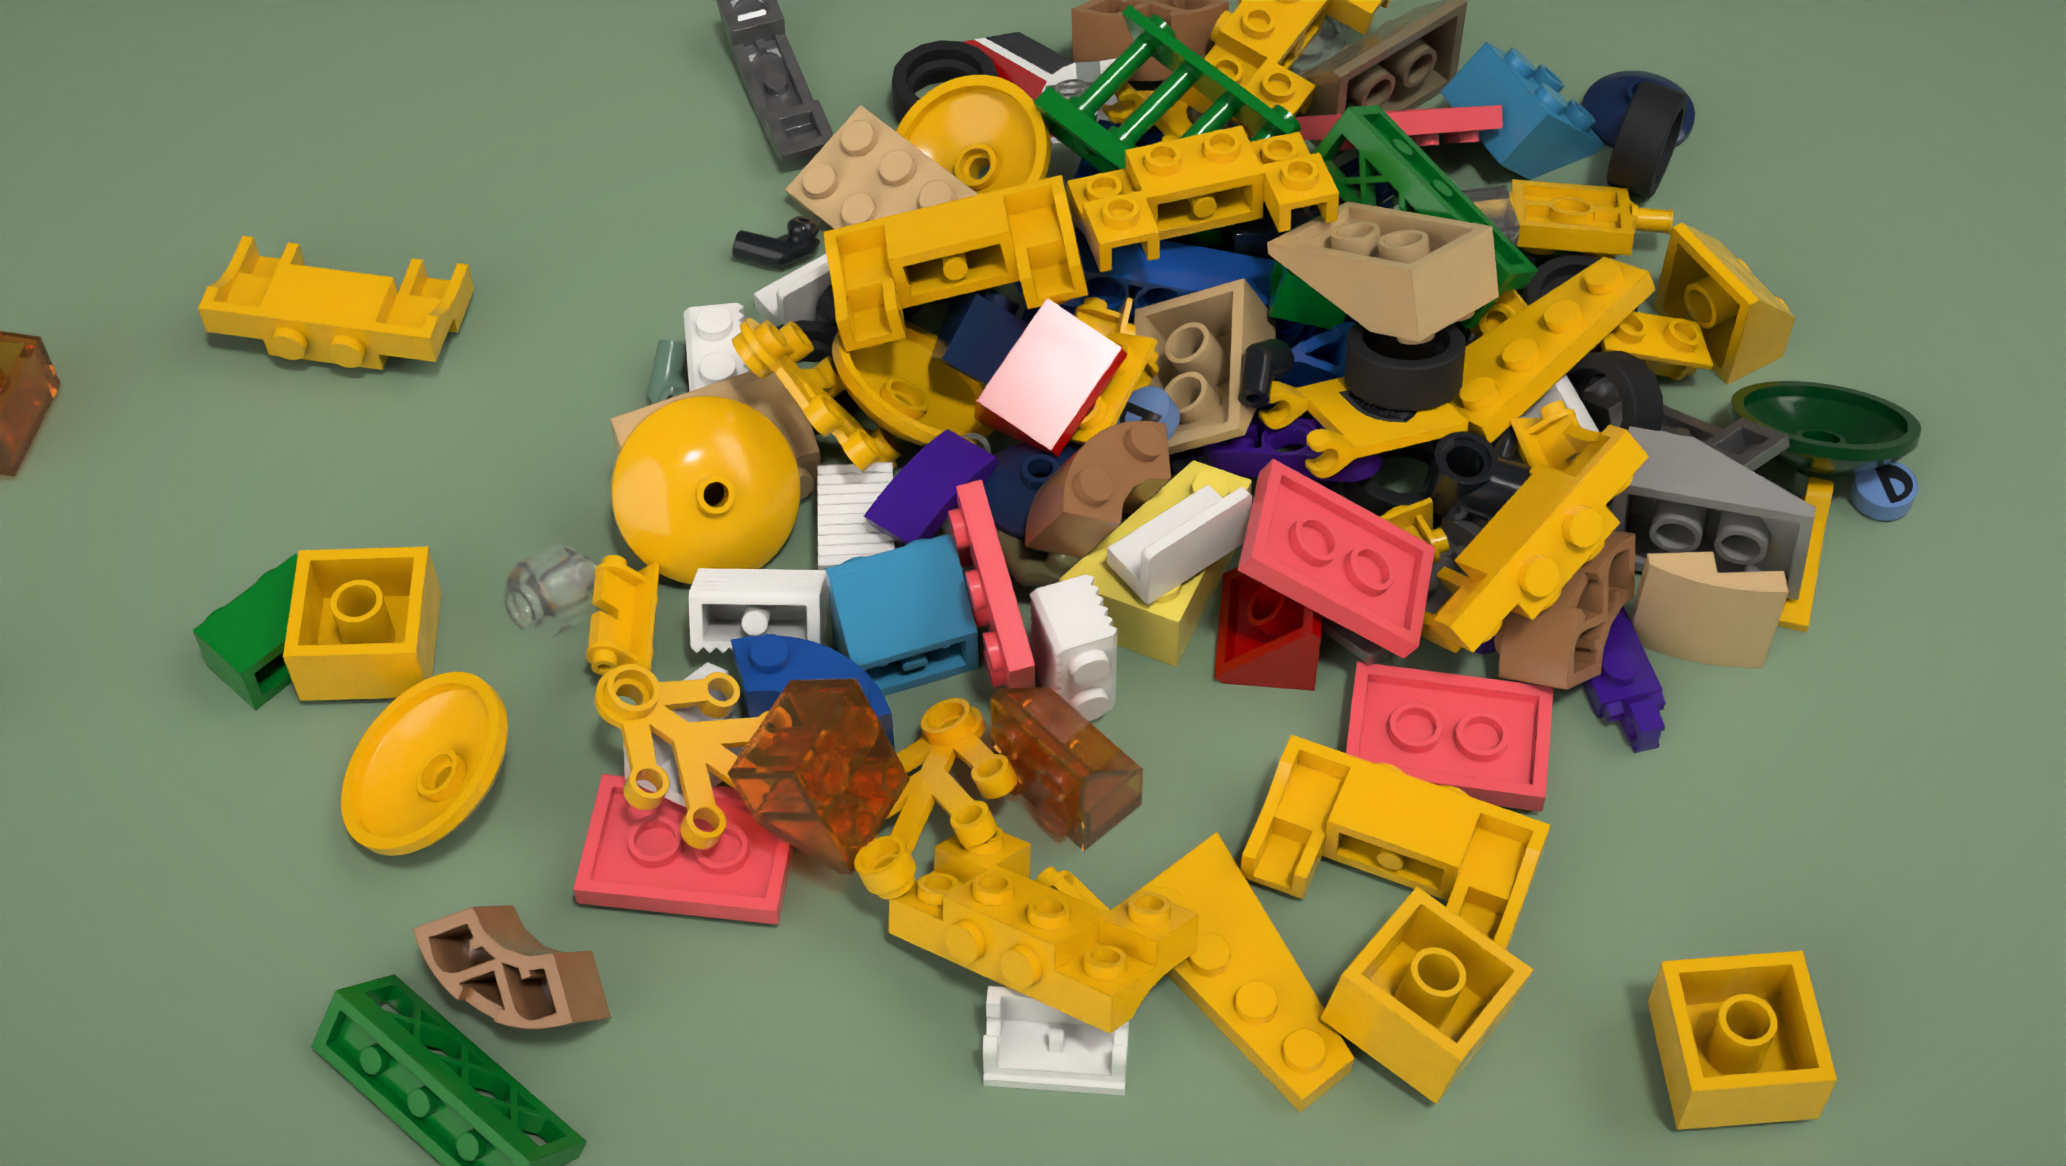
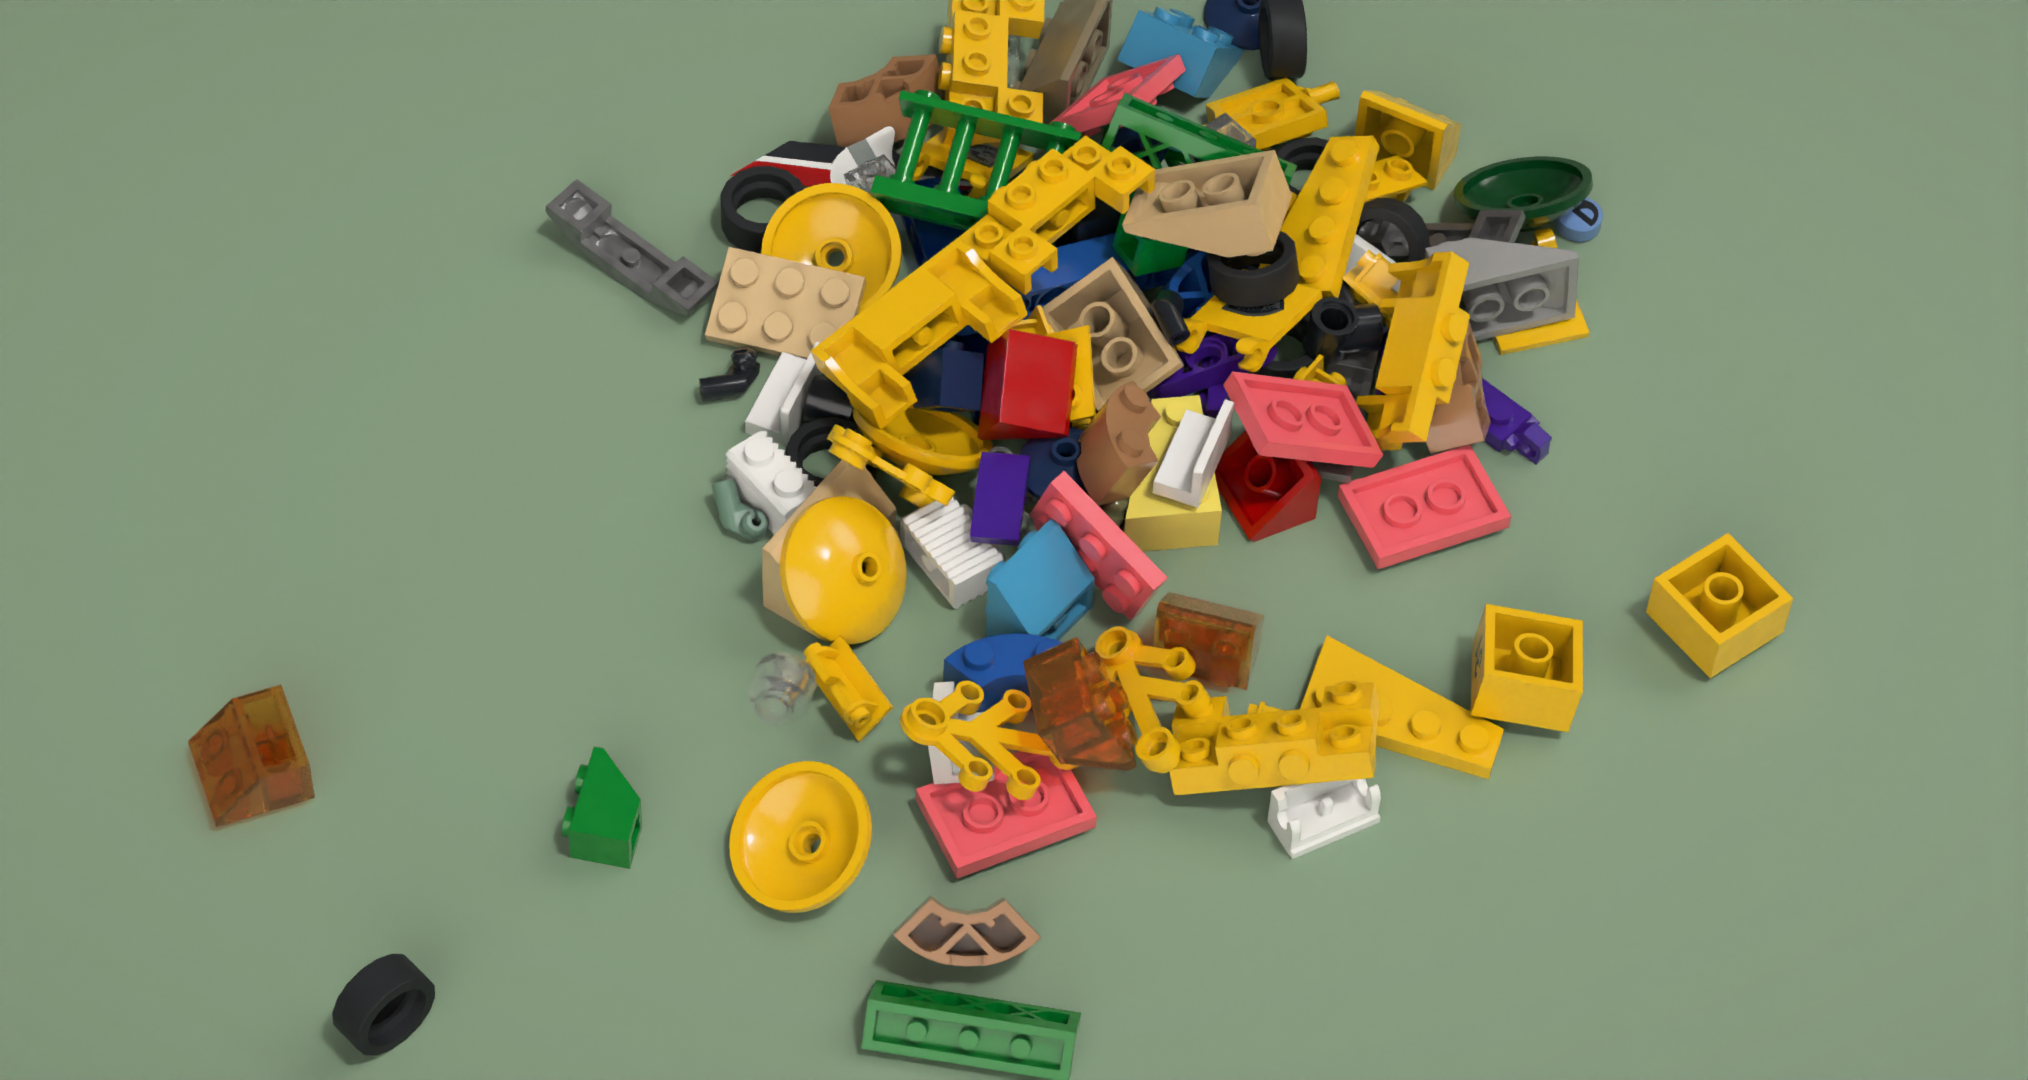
camera: 35 degrees left, 0 degrees up
(334, 312) = (459, 572): yellow bracket -> none
(362, 622) = (680, 769): yellow brick -> none
(756, 603) = (930, 632): white brick -> none
(1075, 645) = (1174, 550): white brick -> none
(1154, 405) = (1107, 377): medium blue tile -> none
(1397, 830) = (1437, 579): yellow bracket -> none
(1705, 614) = (1533, 352): tan slope -> none

